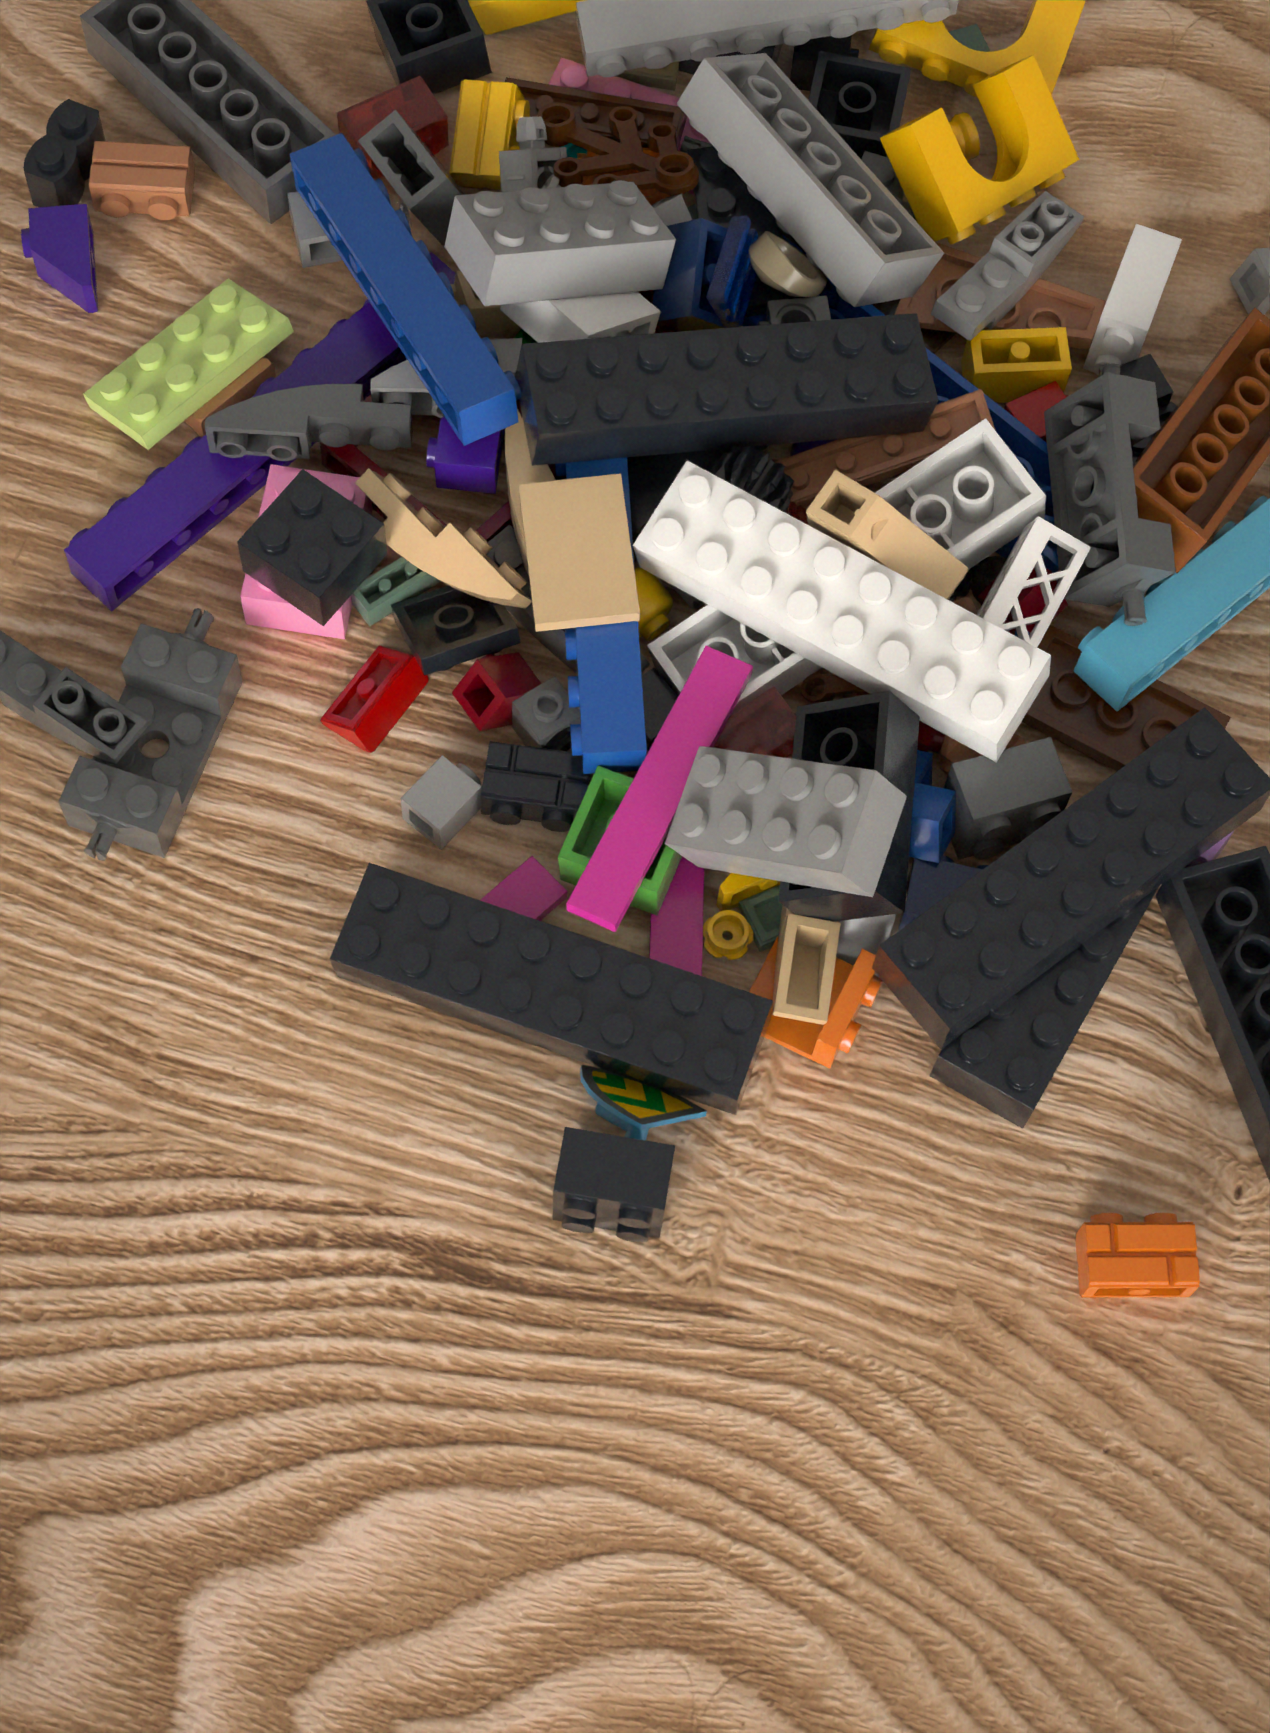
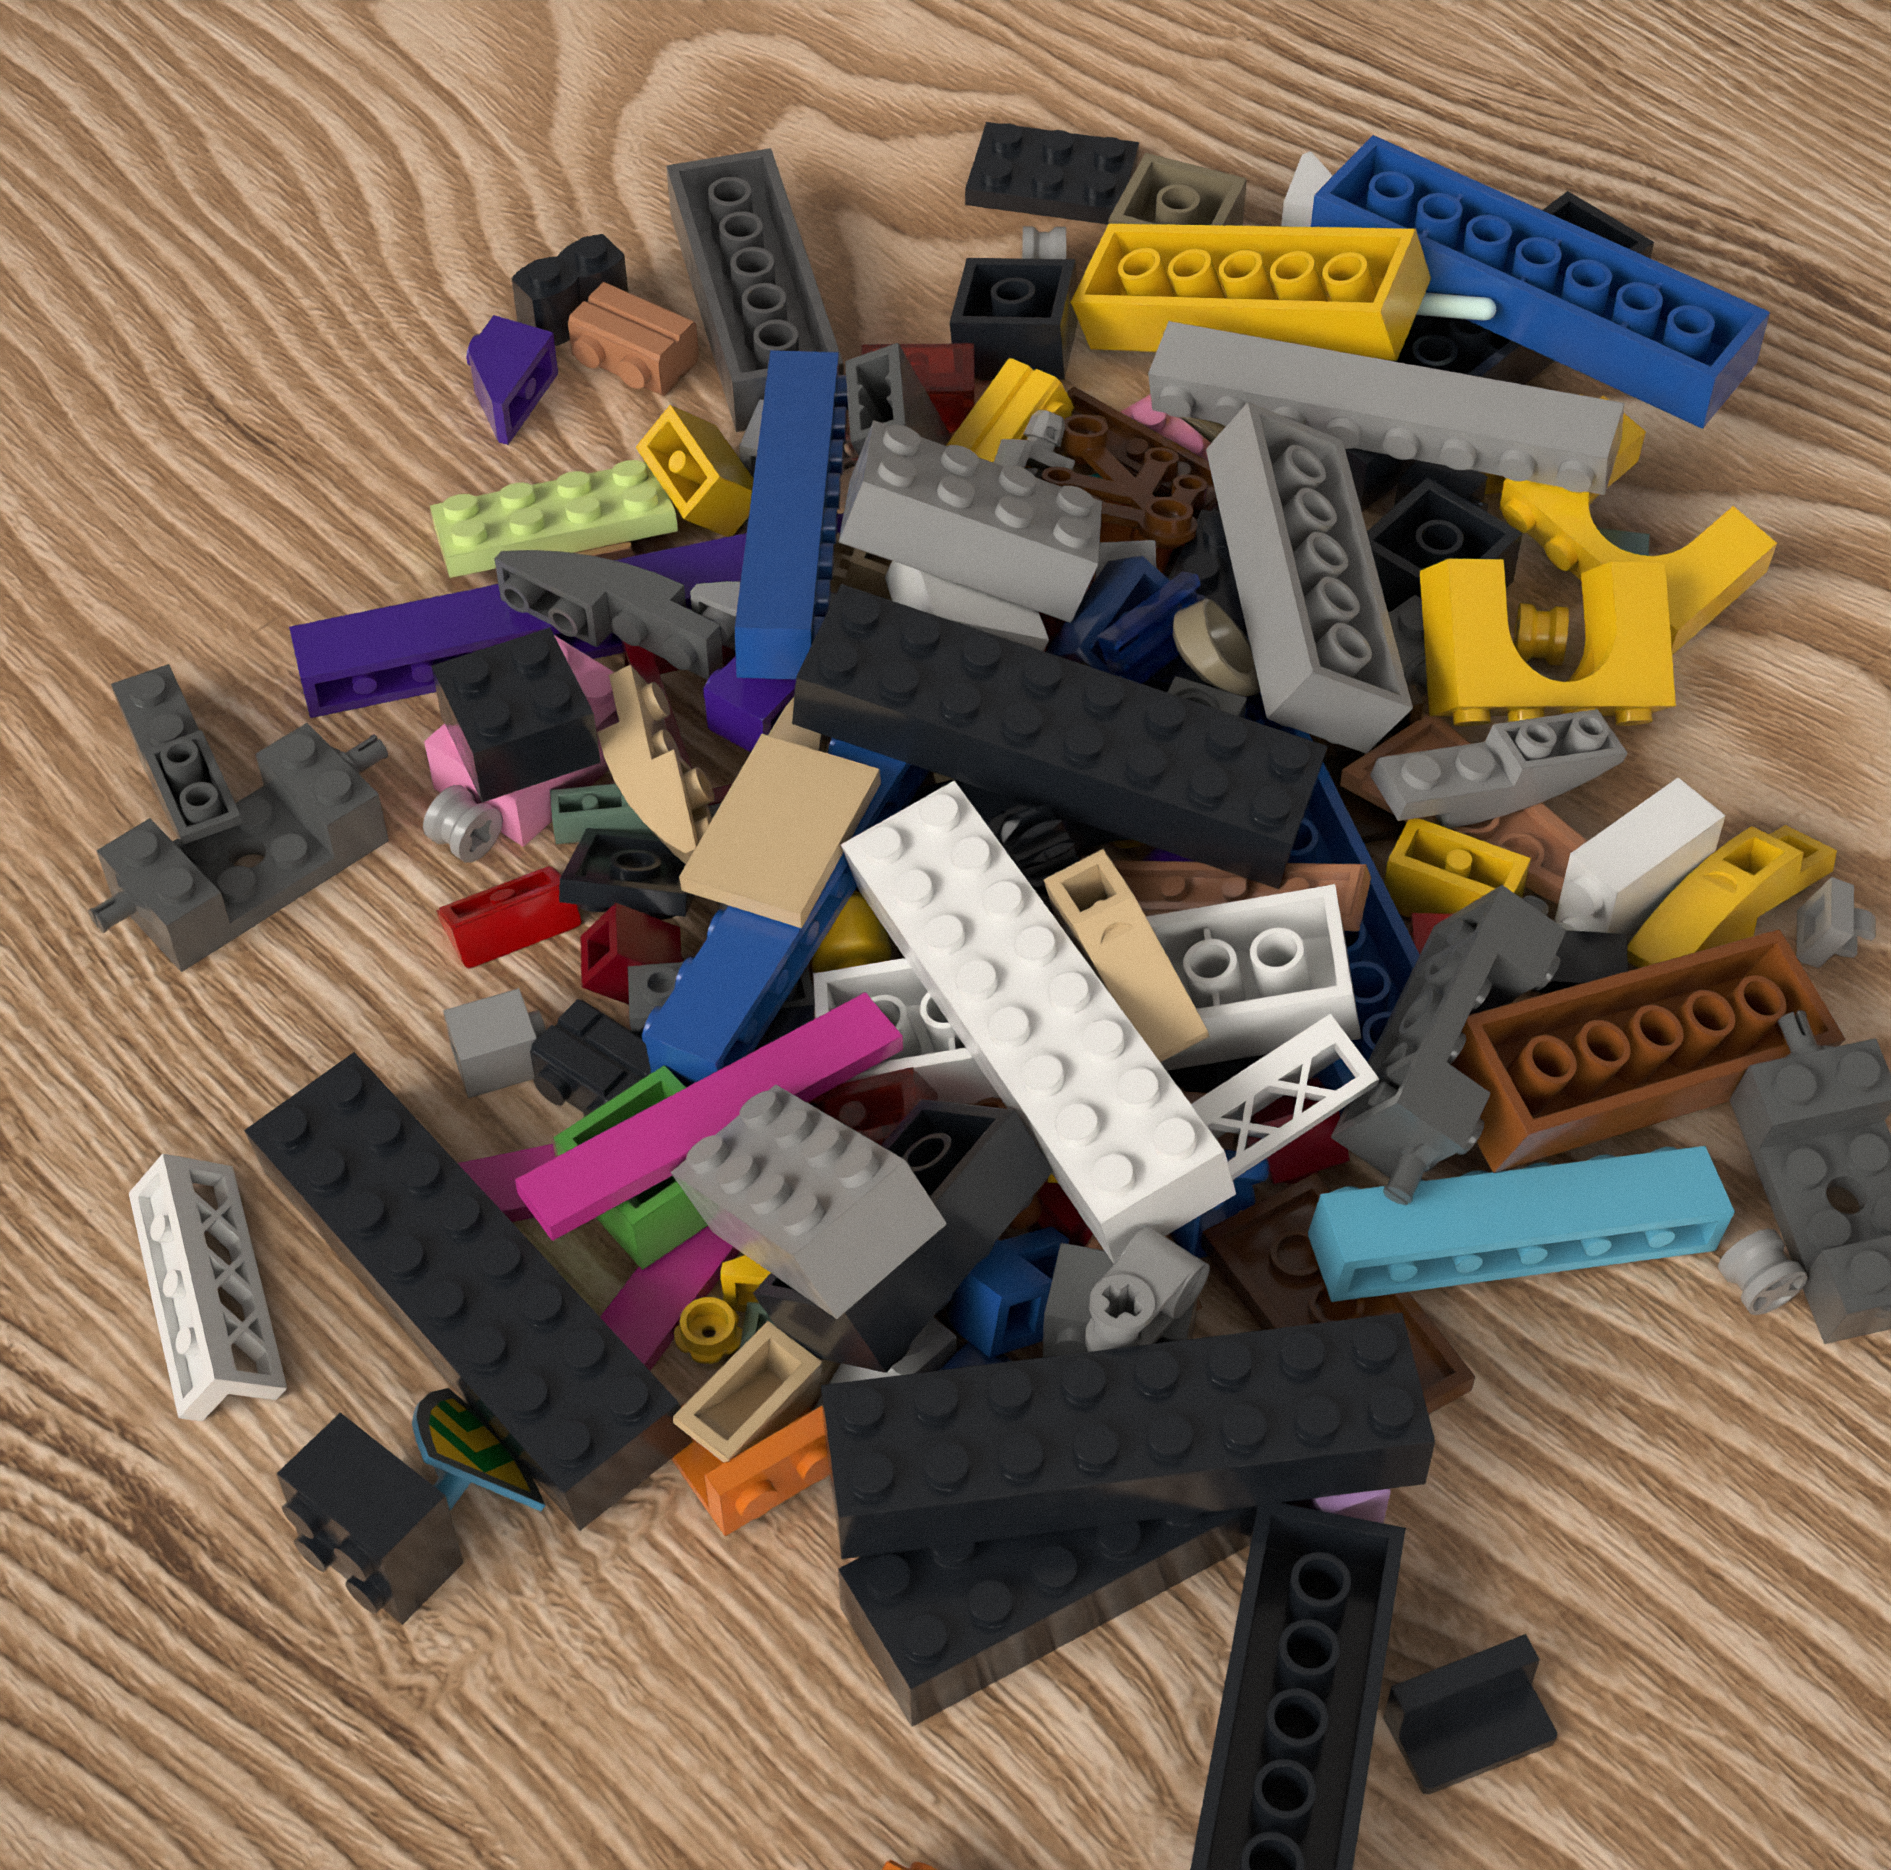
camera: 35 degrees right, 15 degrees down
(279, 274) = (698, 471): none -> yellow brick
(298, 645) = (462, 823): none -> light grey wheel
(357, 1084) = (185, 1282): none -> white fence
(1036, 774) = (1143, 1292): none -> light grey piece
(1193, 296) = (1729, 893): none -> yellow slope

